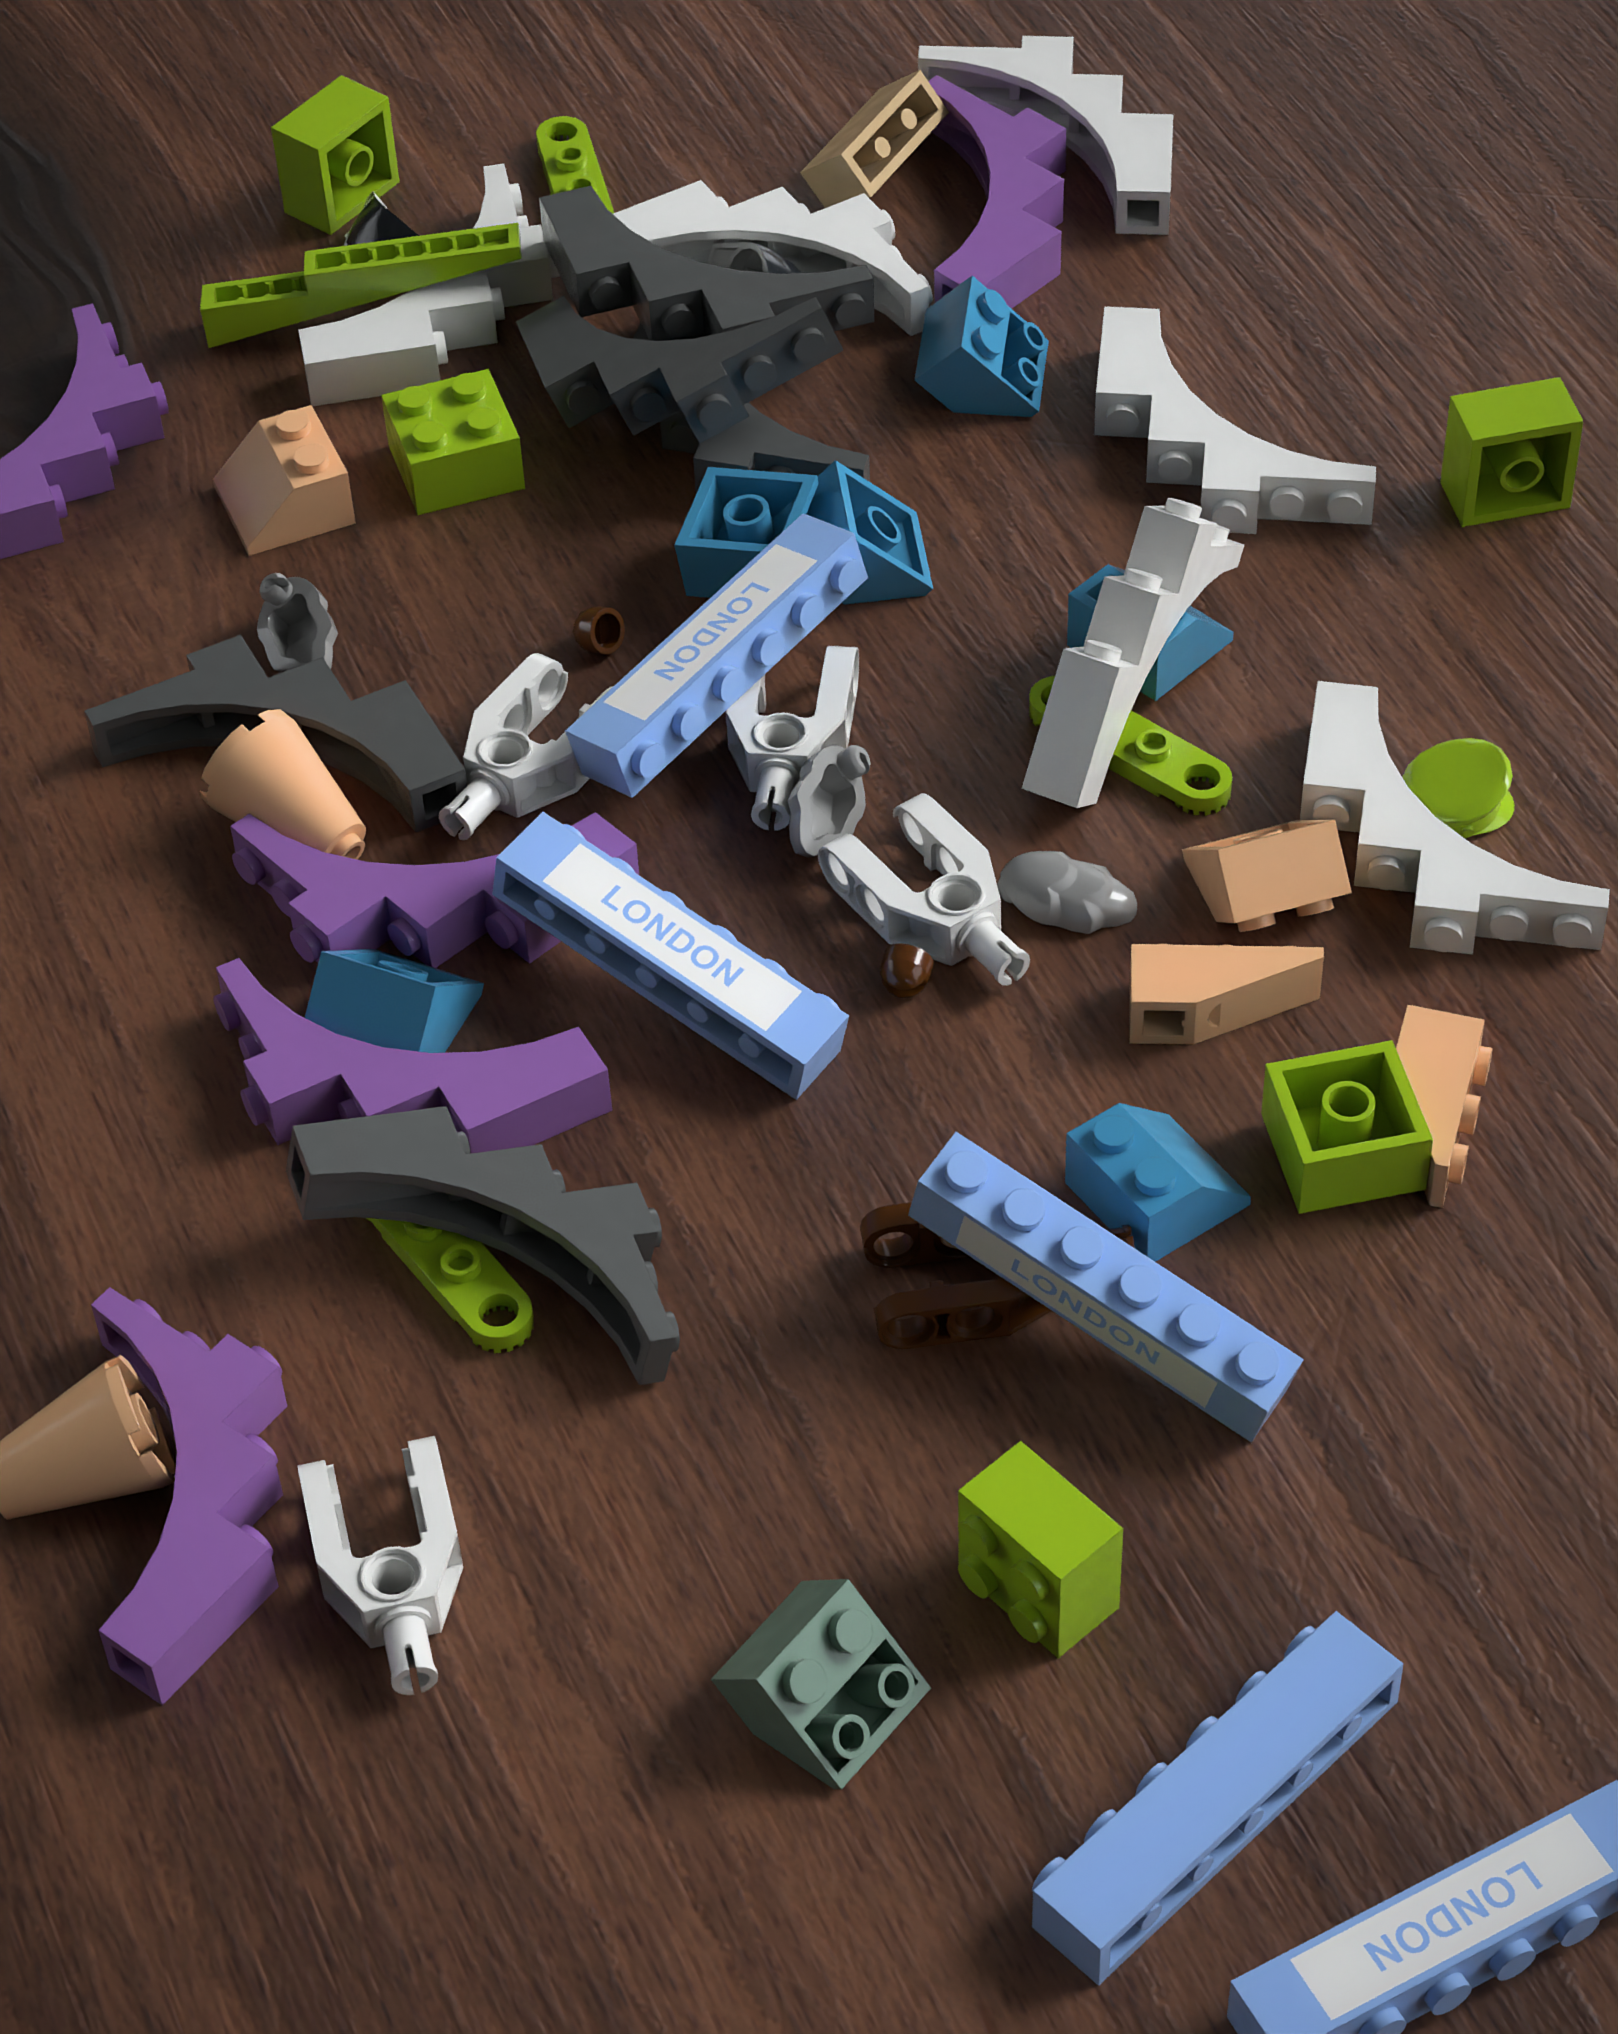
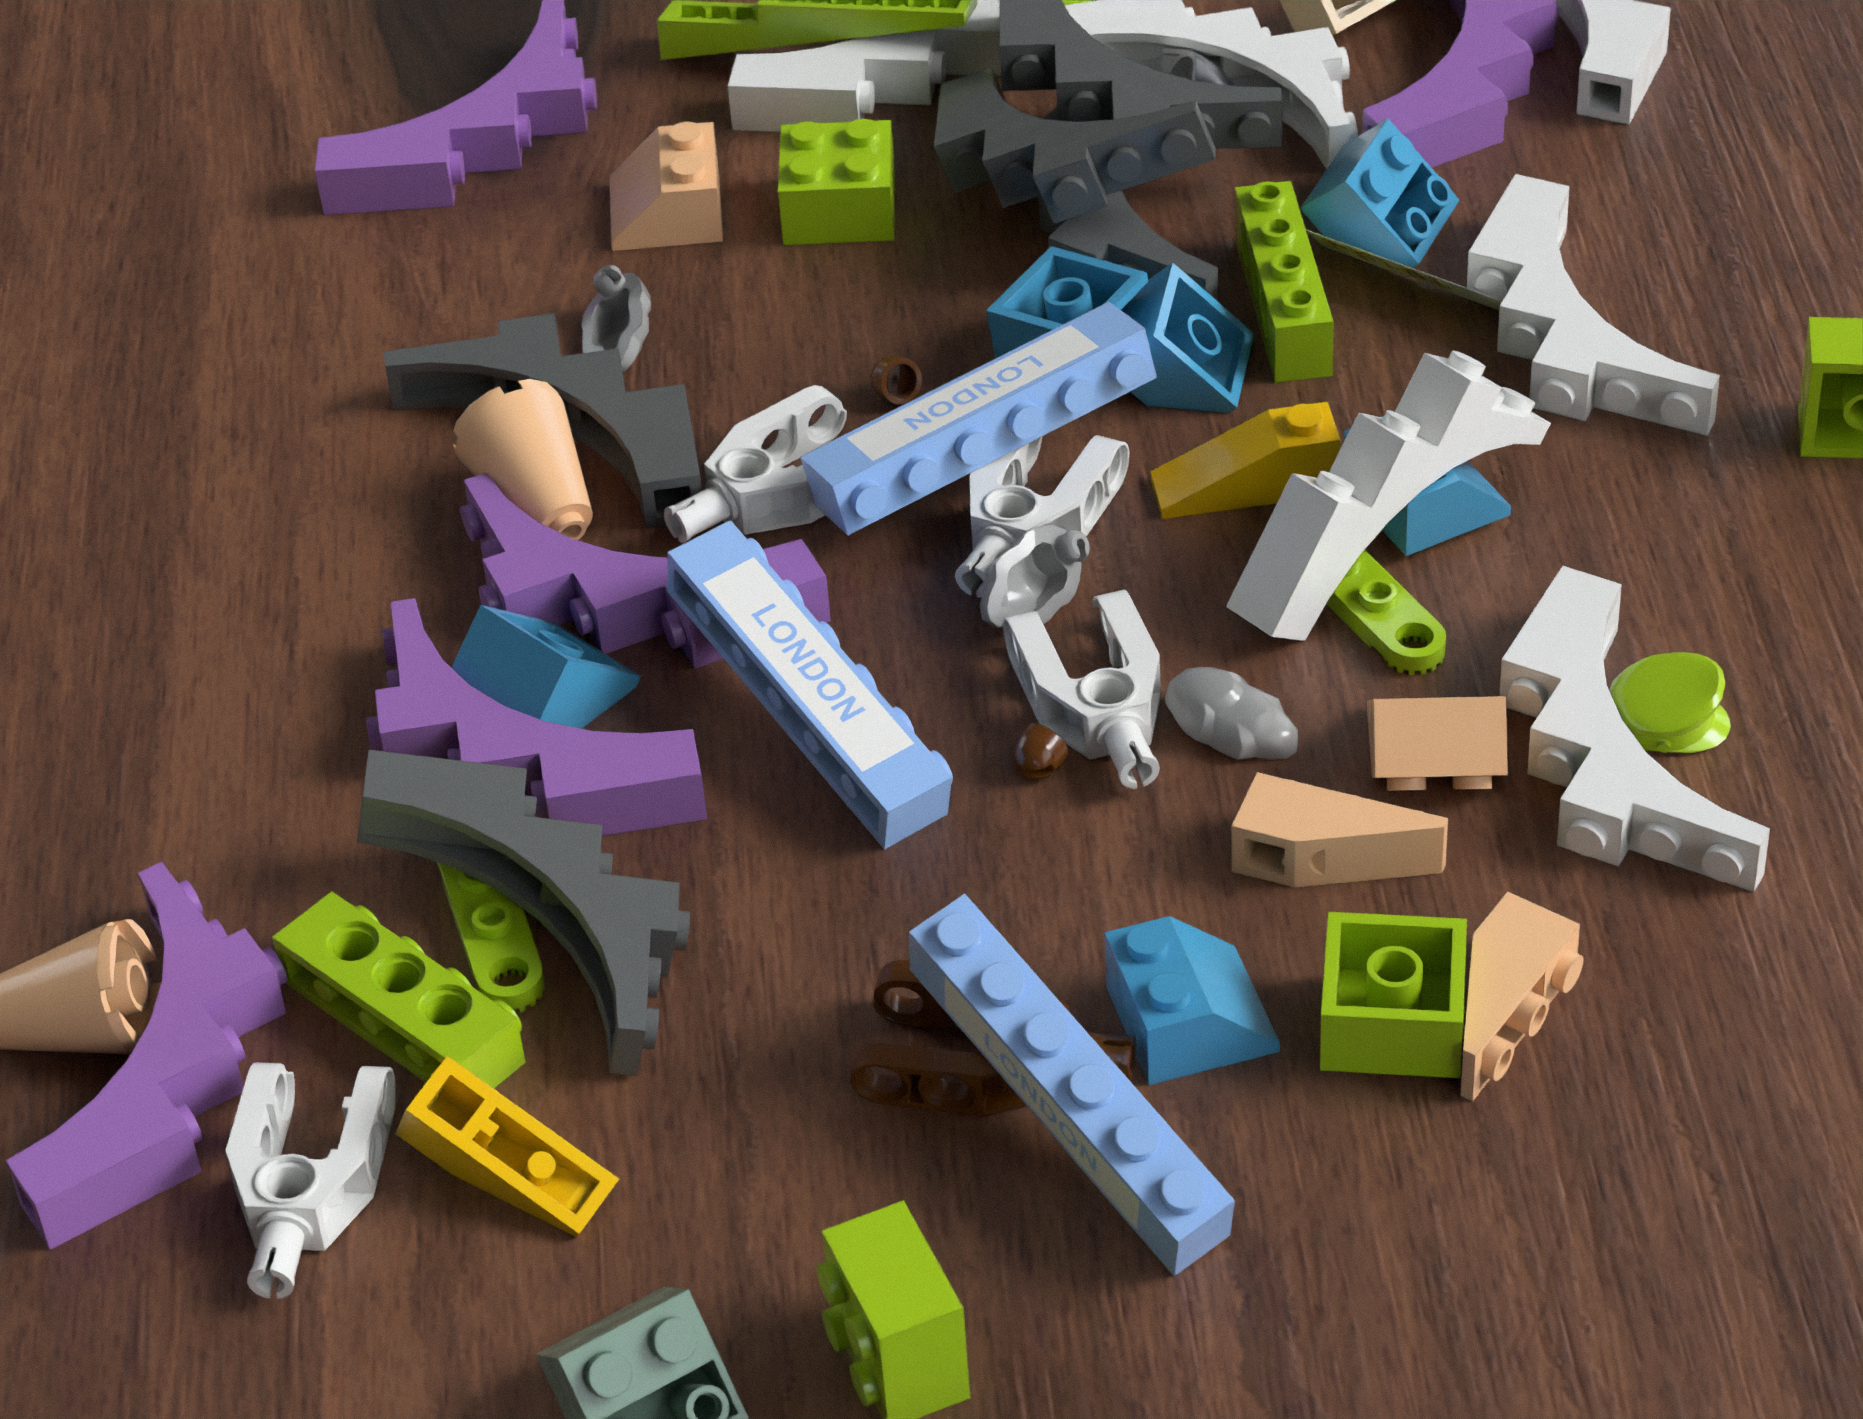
camera: 20 degrees right, 5 degrees down
(362, 1352) = (396, 993): none -> lime brick
(579, 1487) = (503, 1149): none -> yellow slope
(929, 455) = (1283, 282): none -> lime brick
(983, 641) = (1248, 462): none -> yellow slope
(1039, 422) = (1406, 271): none -> white sticker

